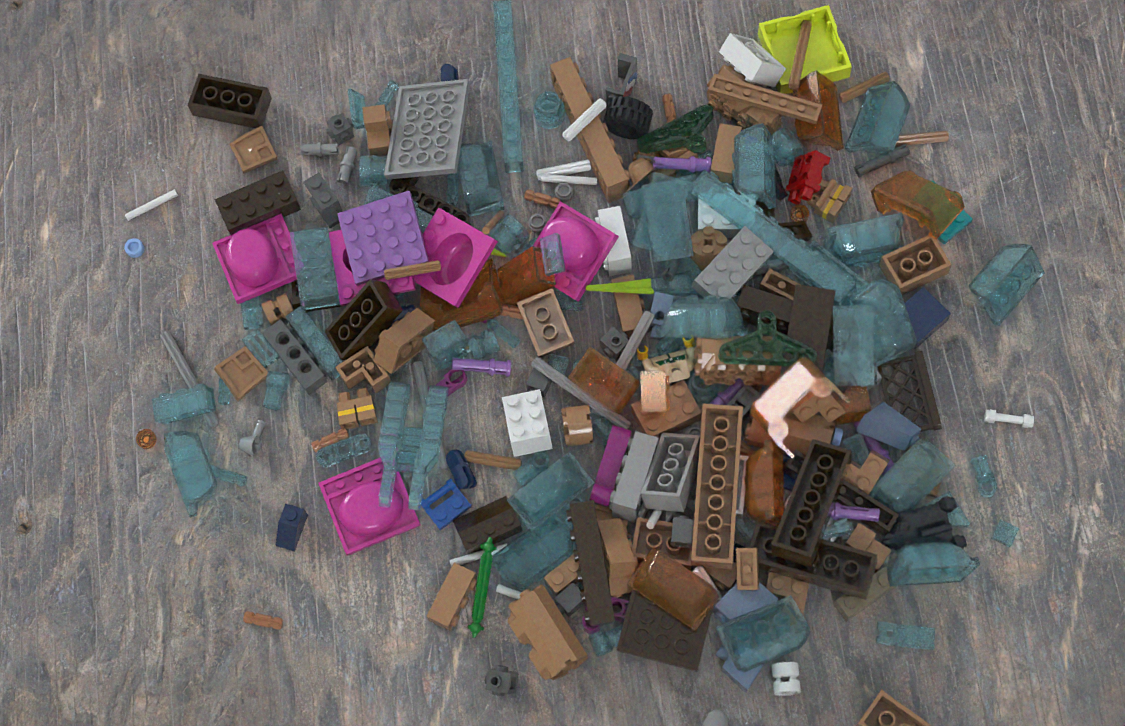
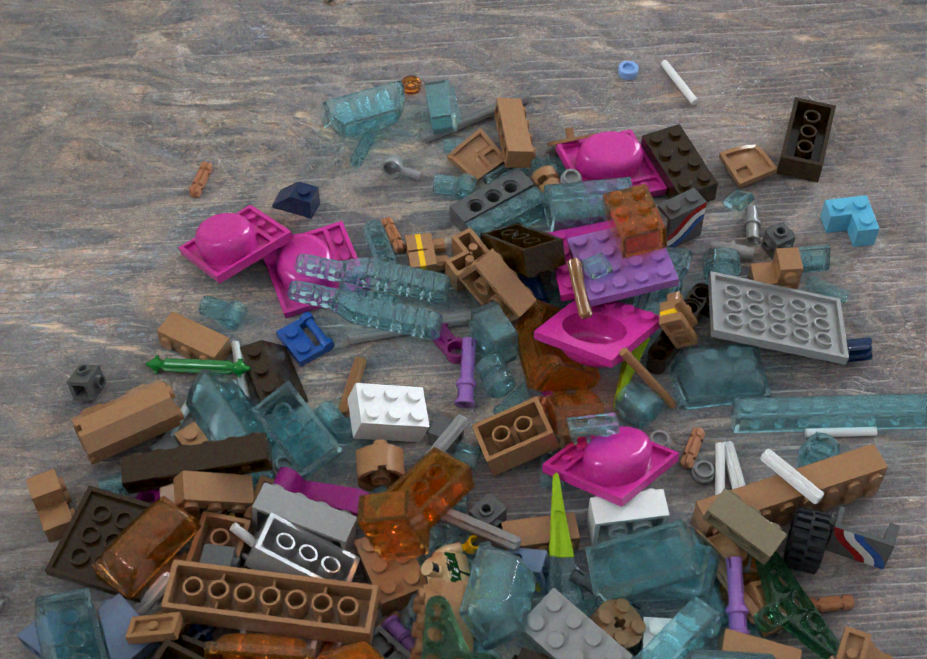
camera: 85 degrees right, 15 degrees down
(218, 339) = (514, 133): none -> medium nougat brick
(225, 293) = (570, 137): none -> medium nougat piece
(279, 287) = (570, 175): none -> light grey plate
(293, 158) = (738, 200): none -> clear light blue tile
(315, 69) = (853, 216): none -> medium azure brick
(349, 570) = (234, 241): none -> dark pink piece
(350, 222) = (634, 220): none -> clear orange brick
(395, 253) = (597, 266): none -> clear light blue tile
(421, 571) = (227, 313): none -> clear light blue piece
(438, 199) = (678, 321): none -> medium nougat hips
(460, 469) = (341, 352): dark blue arm -> none
(522, 95) = (843, 431): none -> white bar
(628, 686) = (51, 501): none -> medium nougat brick
(630, 152) = (744, 526): none -> dark tan brick

